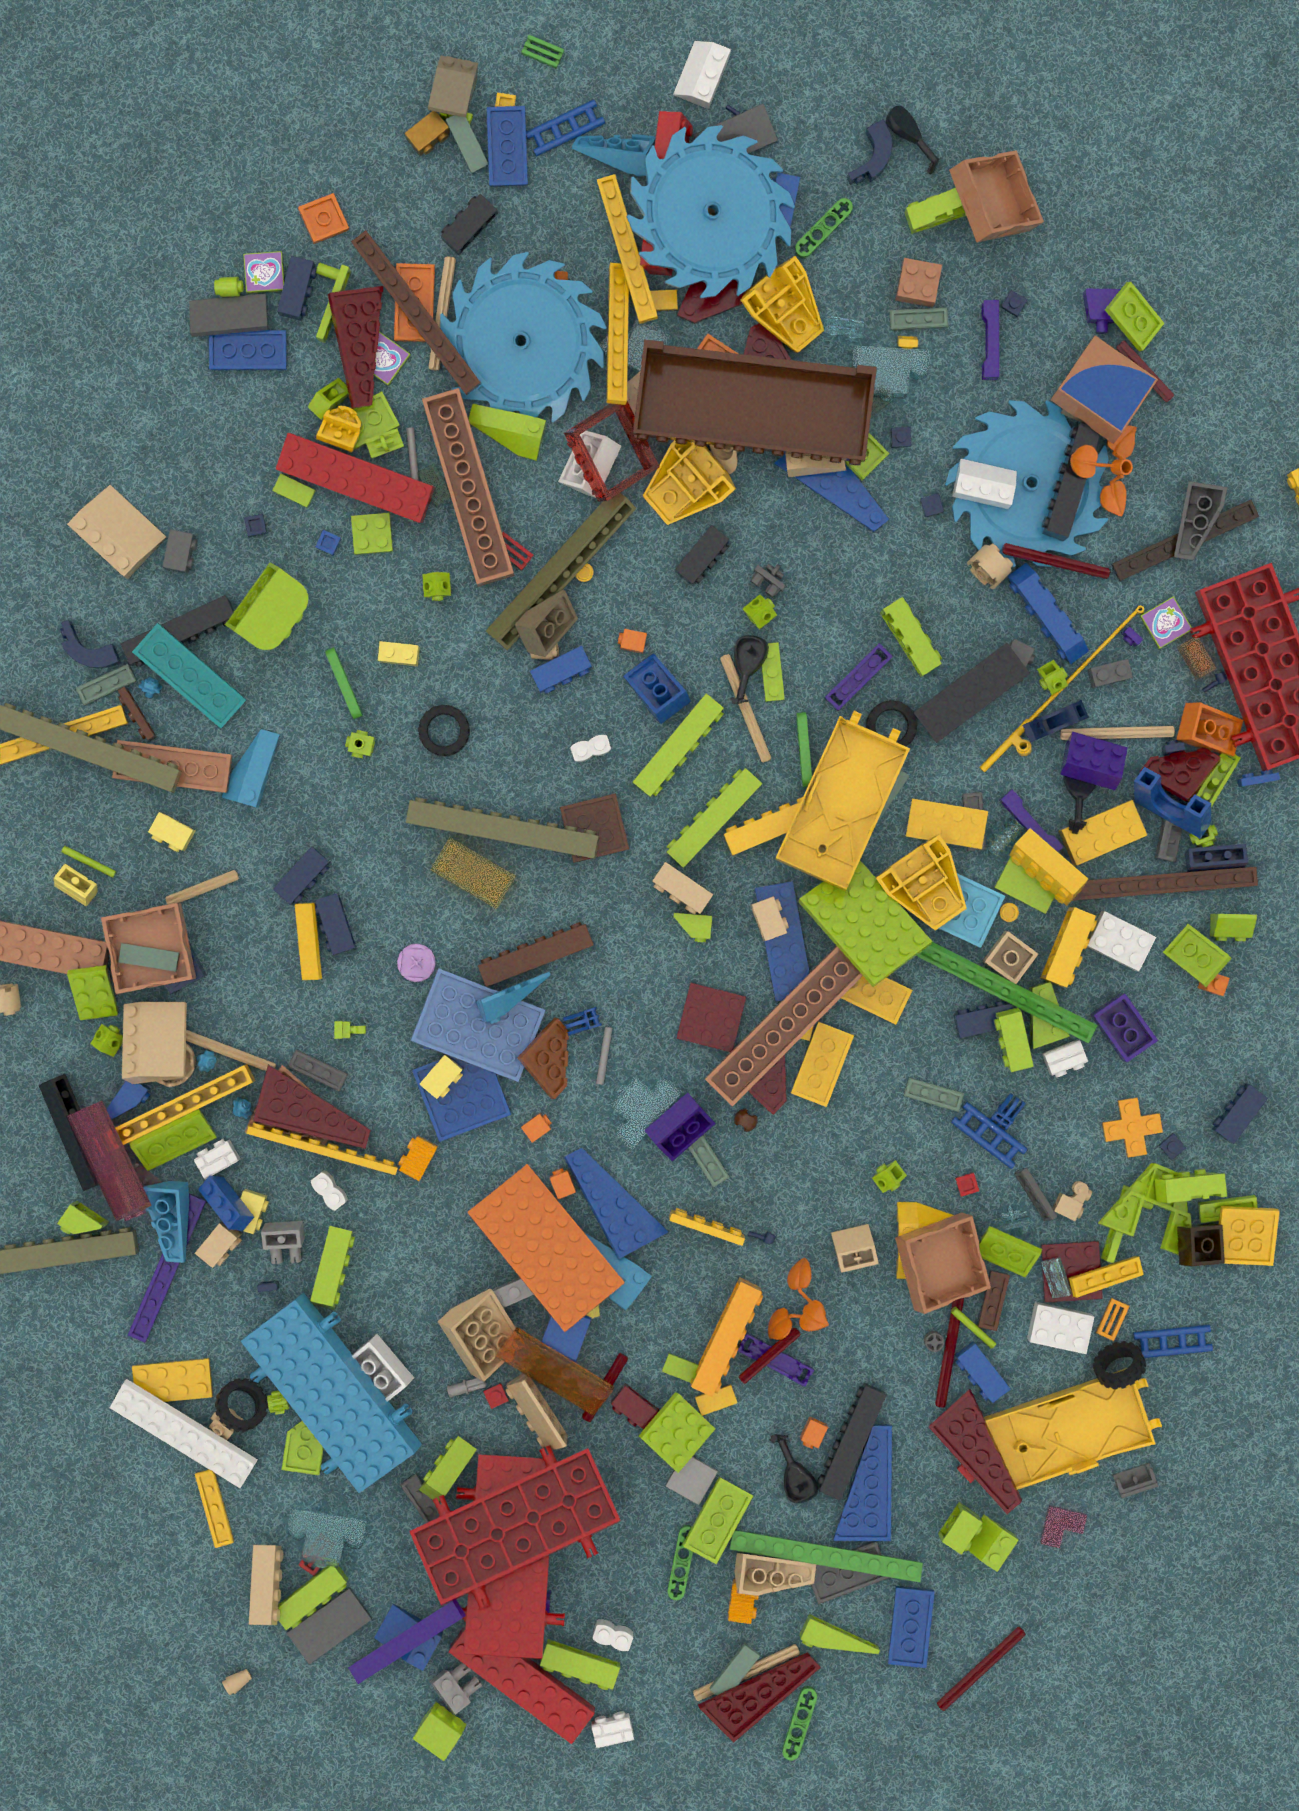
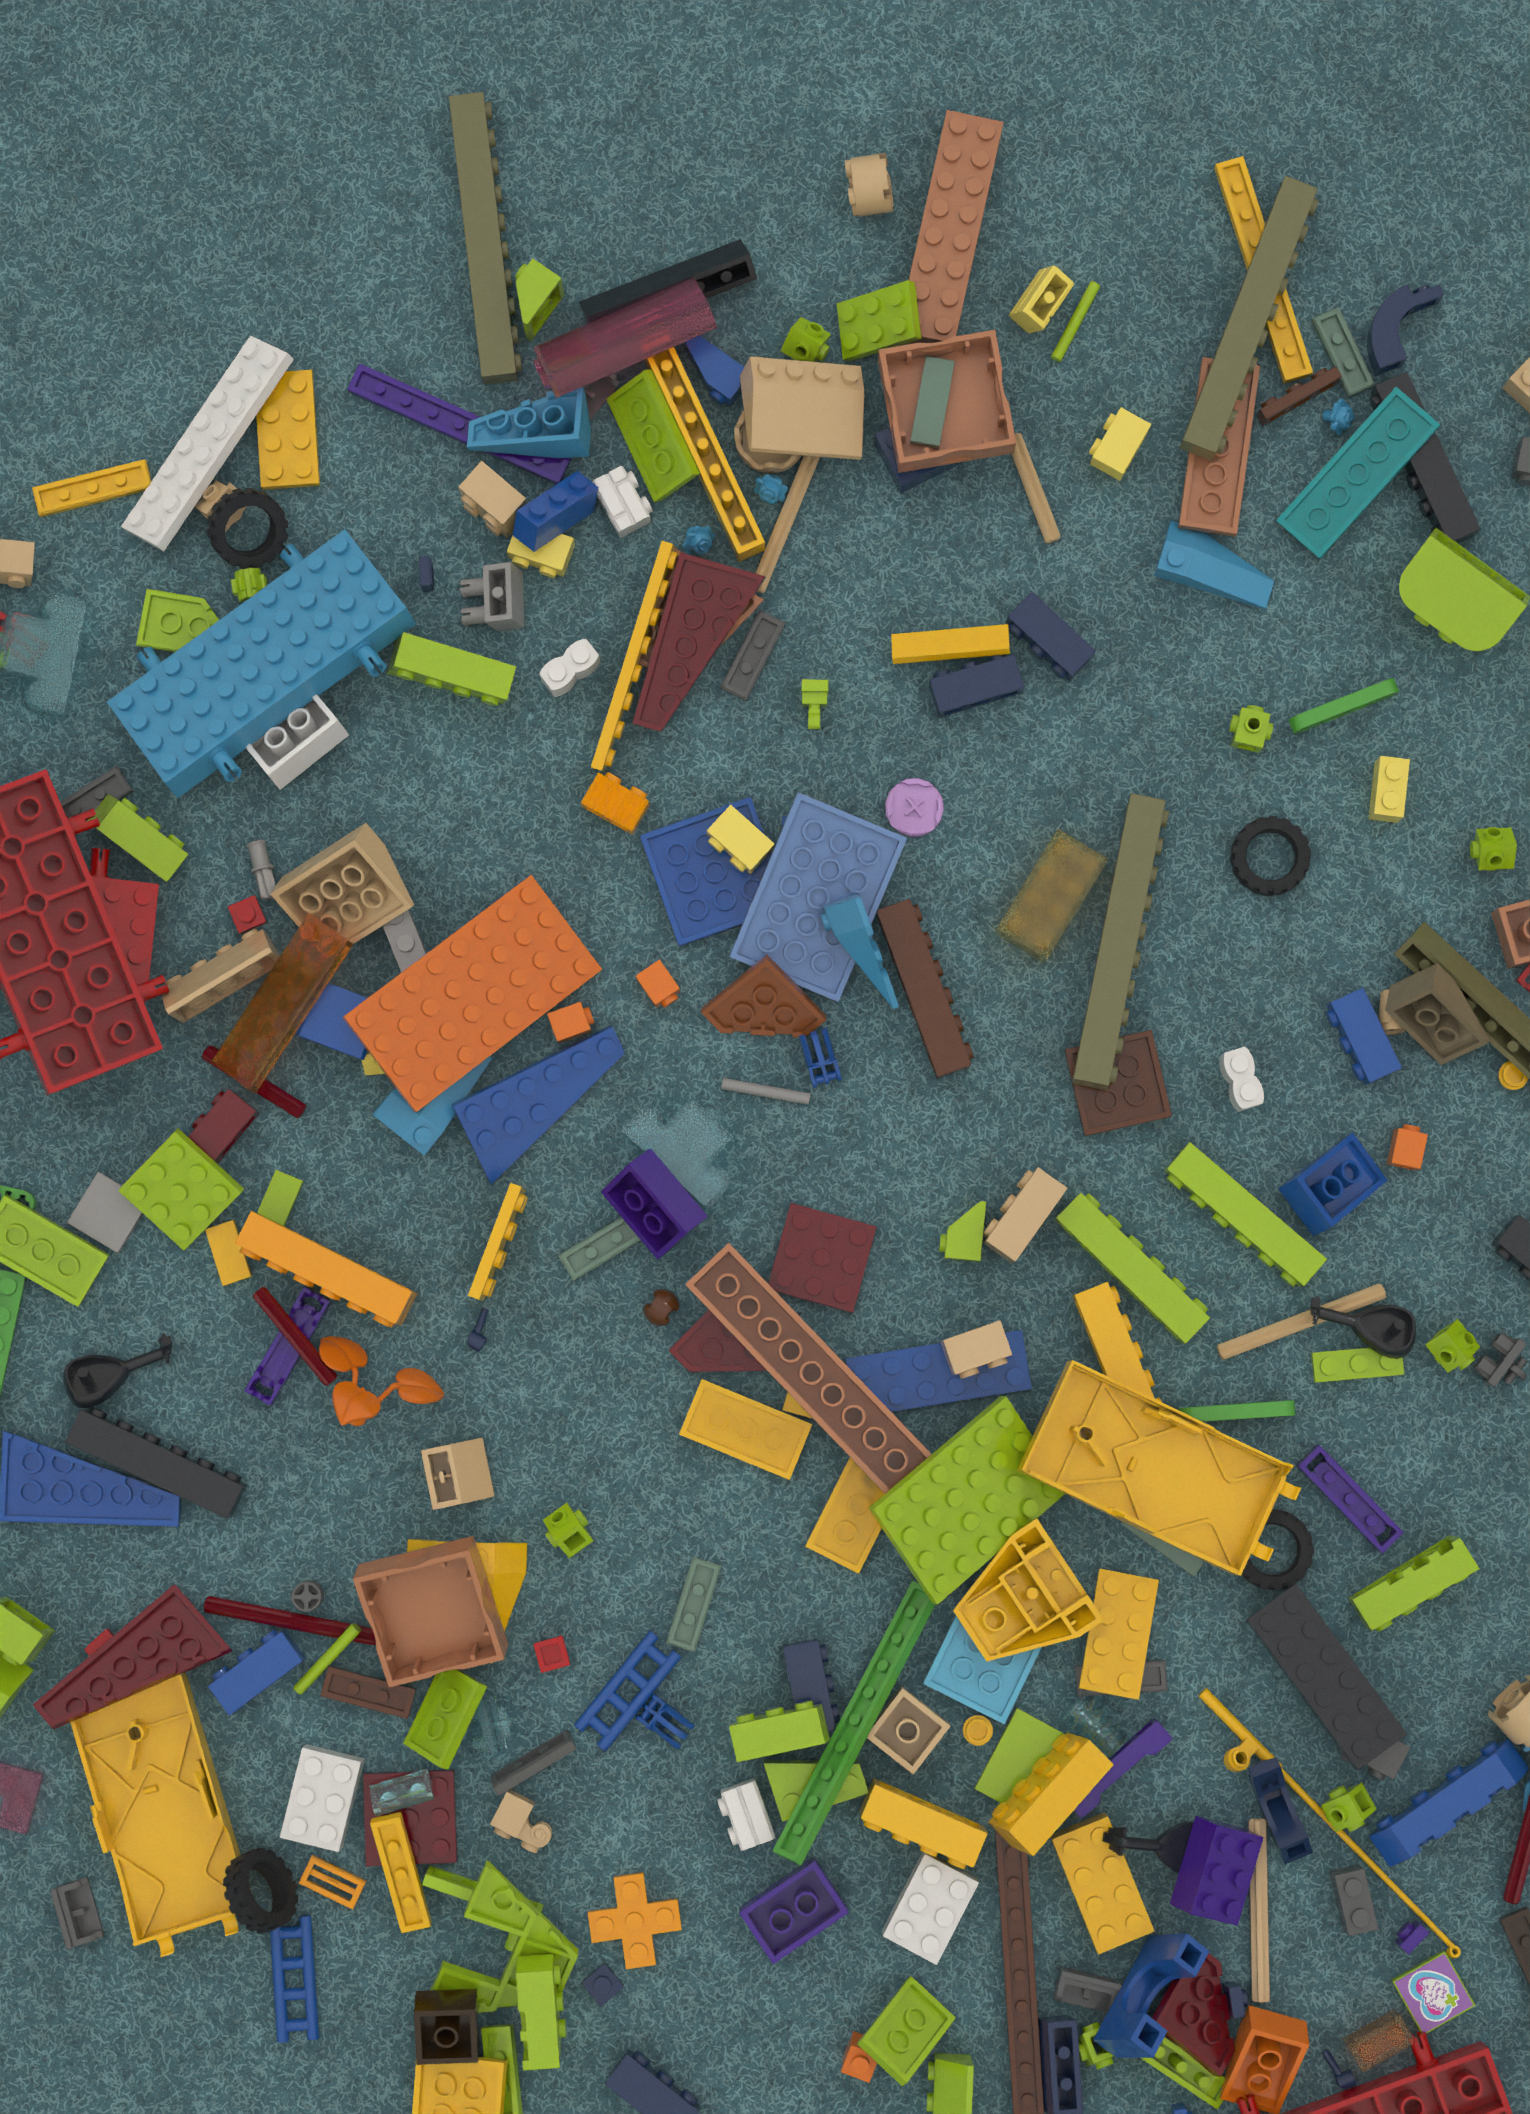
camera: 90 degrees right, 5 degrees down
(813, 1433) = (171, 1403): orange brick -> none

